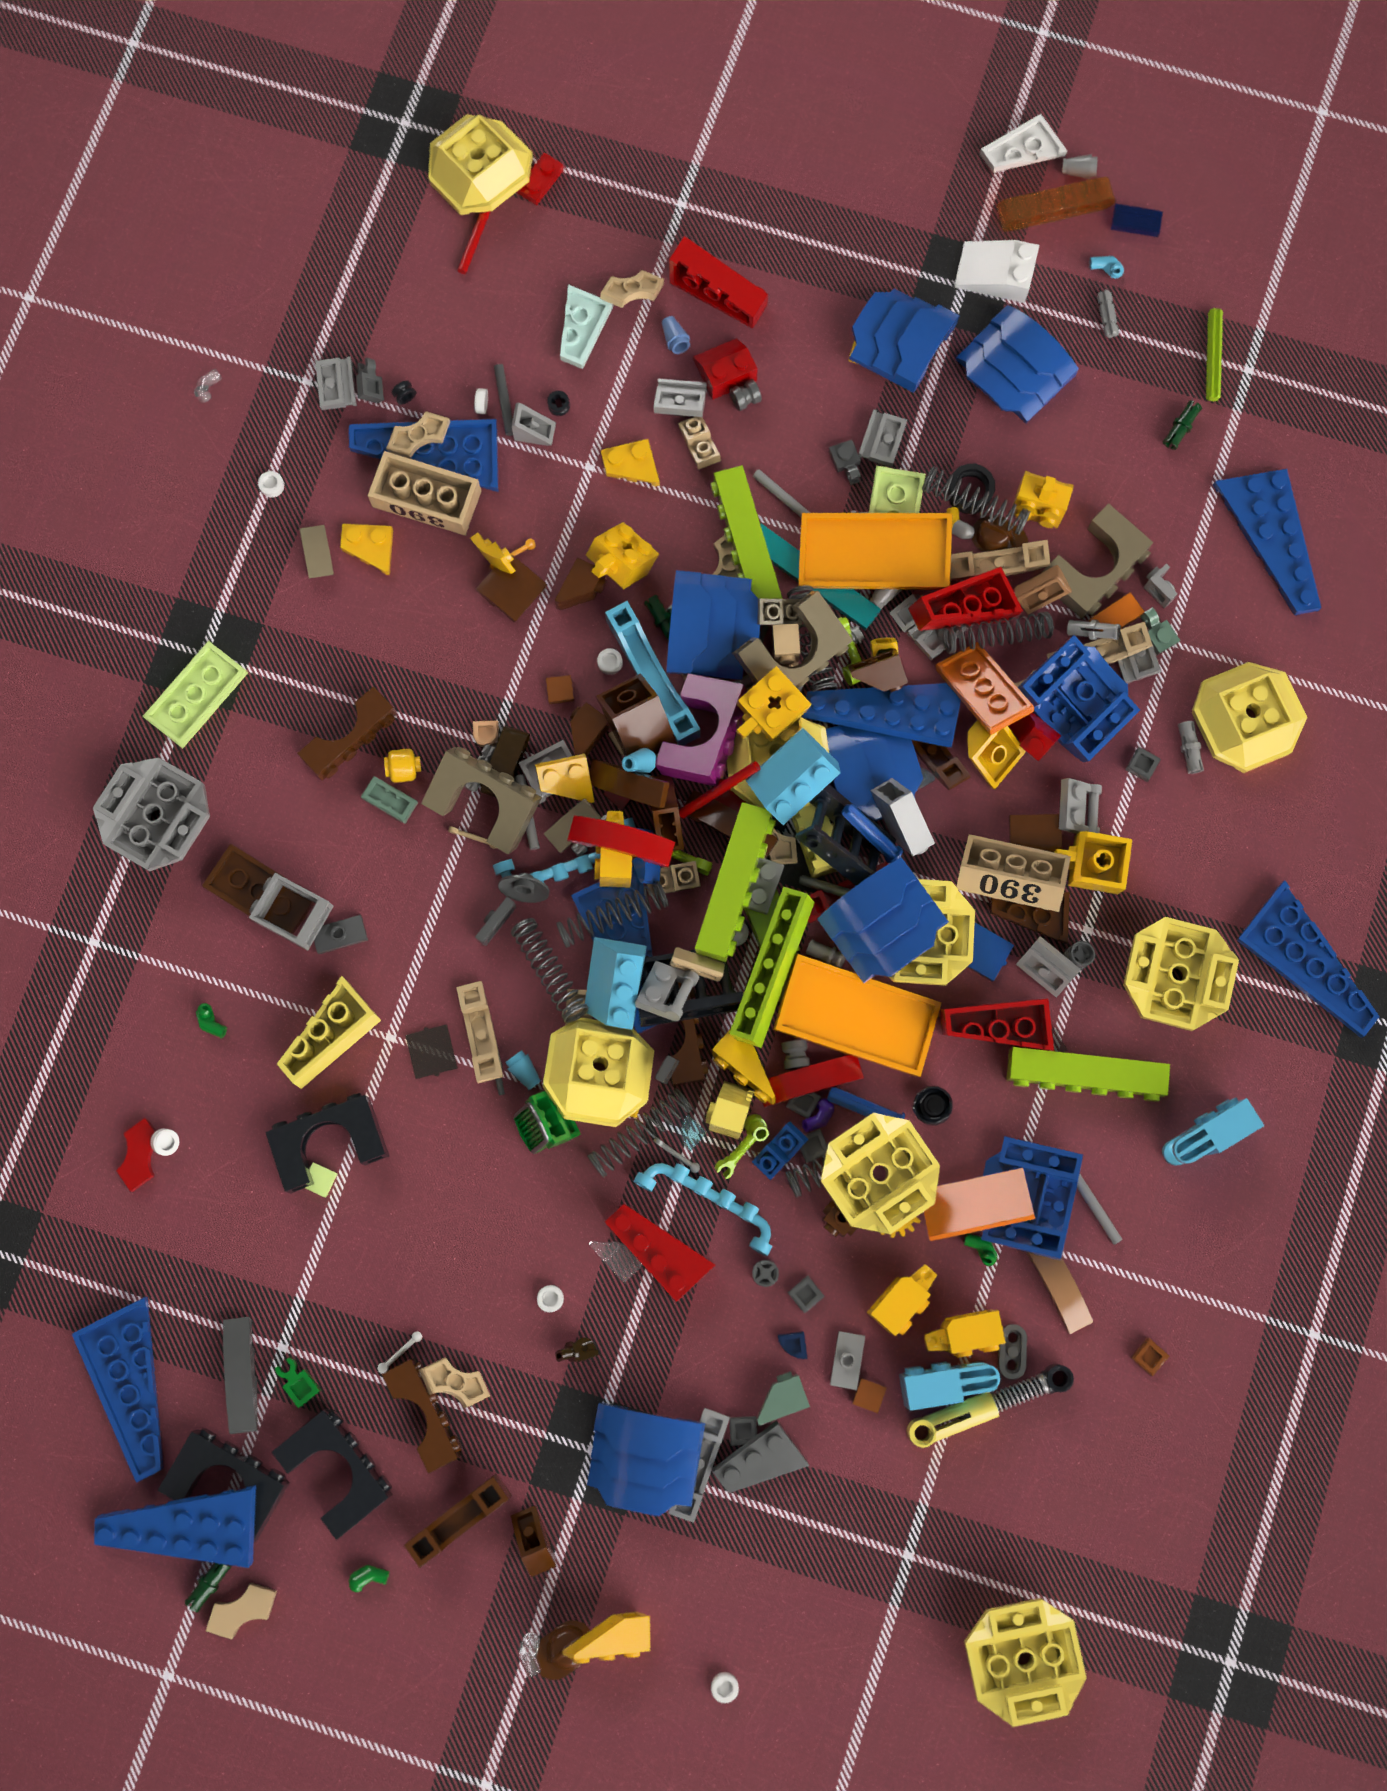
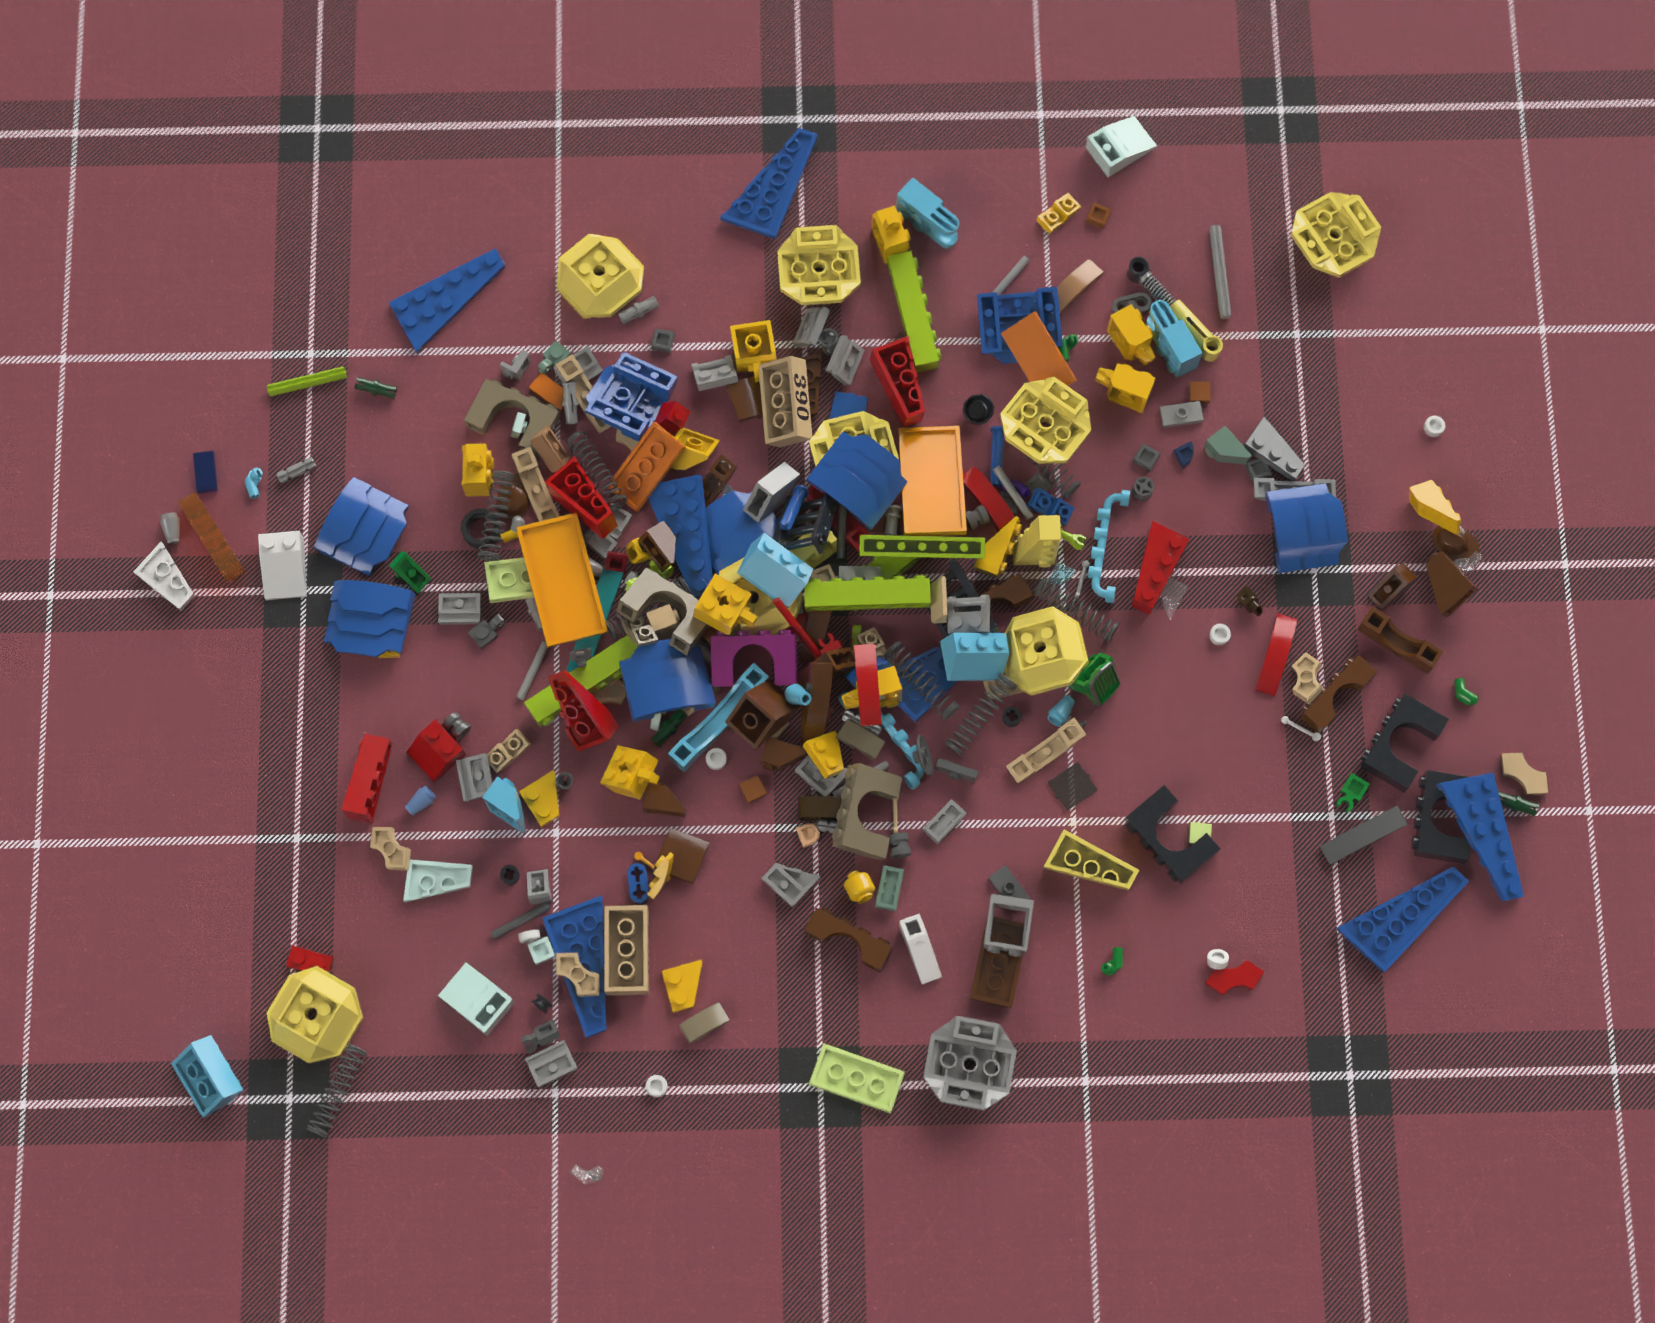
camera: 110 degrees left, 5 degrees down
(308, 807) = (920, 948): none -> white slope
(424, 187) = (349, 1047): none -> dark grey piece
(432, 327) = (477, 999): none -> light aqua slope
(433, 826) = (899, 845): none -> dark grey wheel
(437, 693) = (789, 883): none -> light grey wing
(442, 888) = (944, 821): none -> light grey plate
(456, 48) = (206, 1076): none -> medium azure slope
(461, 408) = (541, 950): none -> light aqua plate
(473, 242) = (387, 997): red bar -> none
(499, 527) = (633, 884): none -> blue beam
(501, 1359) = (1276, 654): none -> red slope
(510, 1615) = (1449, 583): none -> reddish brown slope
(536, 1002) = (1017, 713): none -> black bush
(628, 411) = (505, 803): none -> medium azure slope
(644, 486) = (560, 780): none -> dark grey hinge
(667, 1069) = (1025, 599): dark grey tile -> none
(689, 825) = (832, 645): none -> red tile
(699, 528) = (585, 717): none -> red wedge
(777, 543) = (581, 656): none -> dark grey plate
(811, 1109) = (1013, 492): none -> light grey bar
(832, 1224) = (1086, 450): reddish brown brick -> none
(878, 620) = (616, 561): none -> dark red slope
(943, 396) = (409, 572): none -> green slope
(1023, 1486) = (1220, 272): none -> light grey axle
(1084, 565) = (519, 425): none -> light aqua plate
(1104, 940) = (811, 326): none -> light grey plate
(1167, 1306) = (1059, 213): none -> yellow slope
(1200, 1077) = (889, 232): none -> yellow hinge
(1239, 1421) = (1119, 145): none -> light aqua slope

